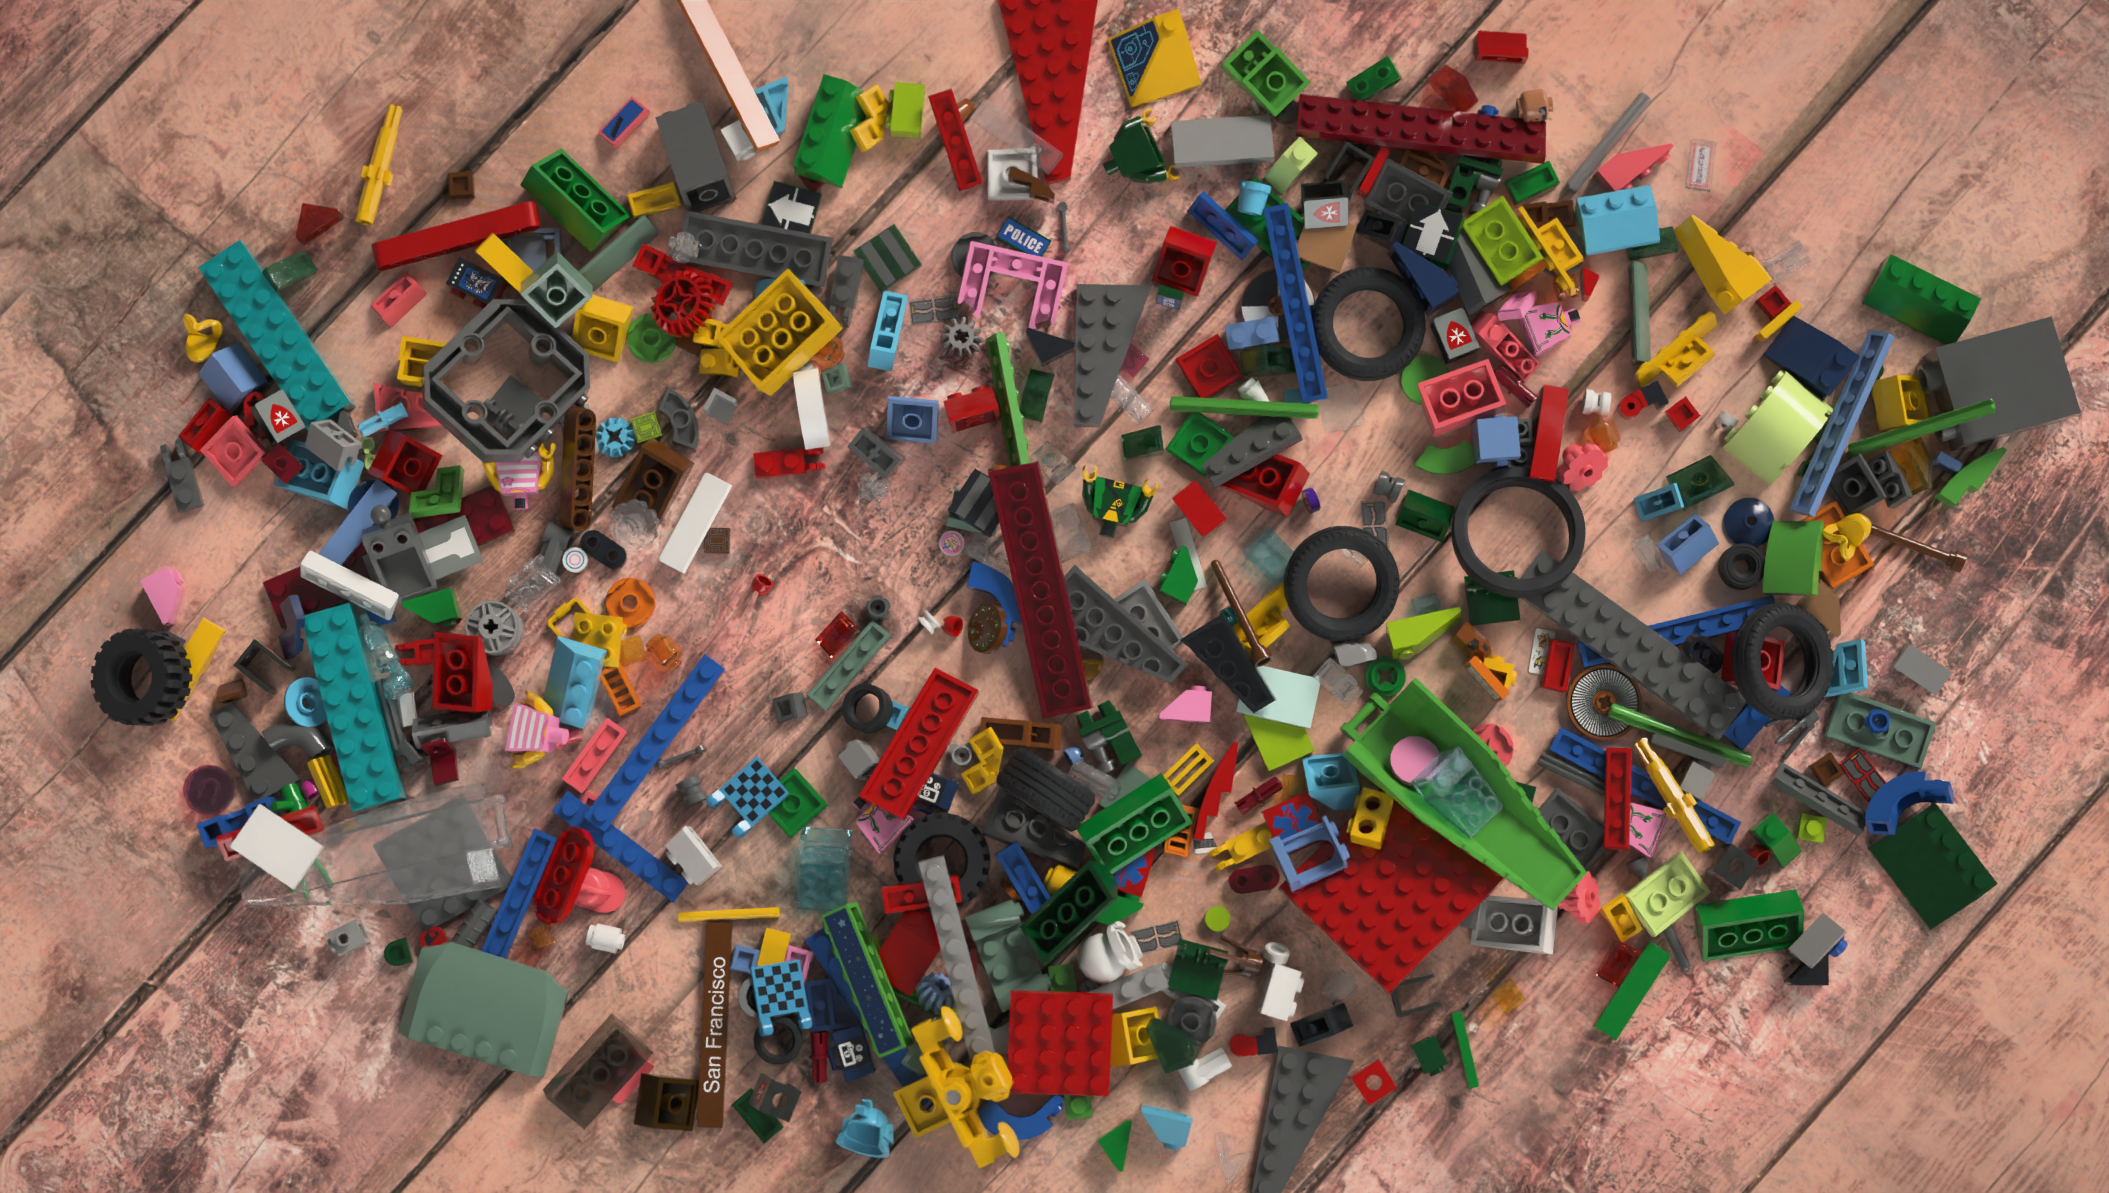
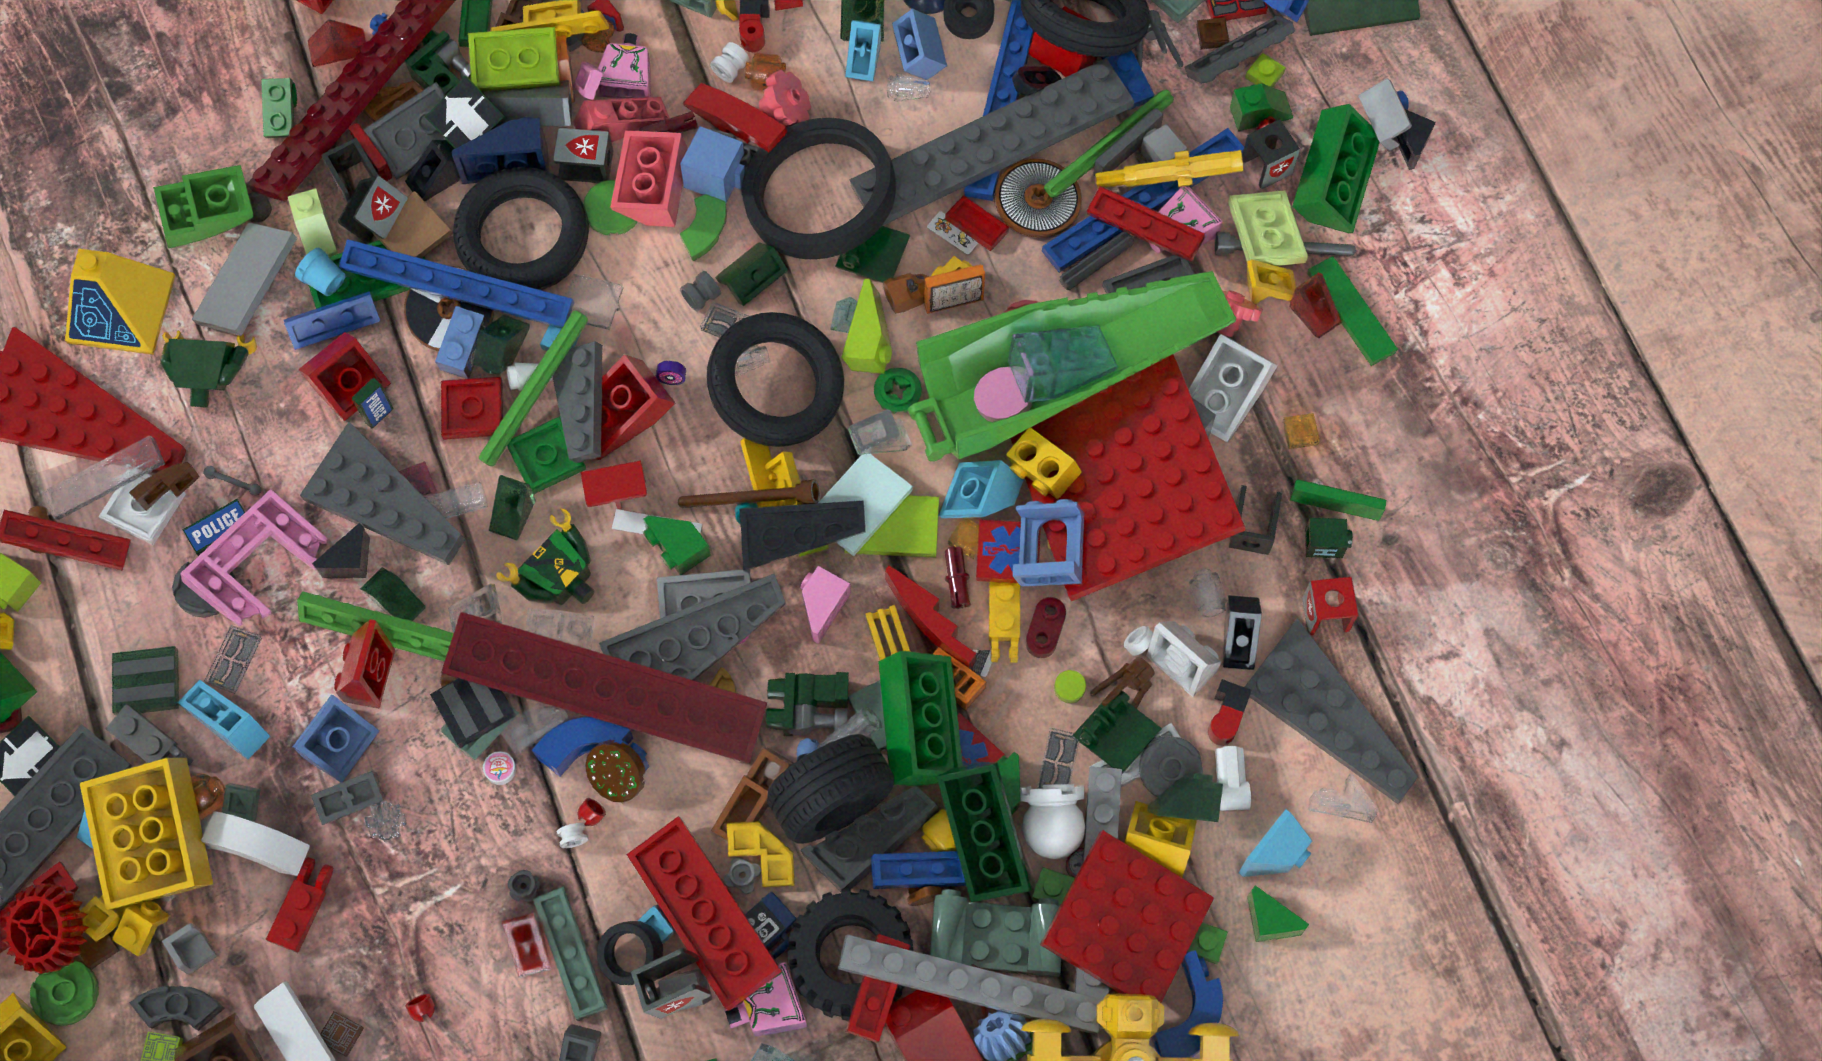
camera: 65 degrees left, 15 degrees down
(851, 731) = (647, 974): none -> pearl dark grey piece
(958, 345) = (288, 649): light grey gear -> none
(1270, 555) = (707, 442): clear light blue plate -> none
(1353, 653) = (855, 407): light grey rock -> none

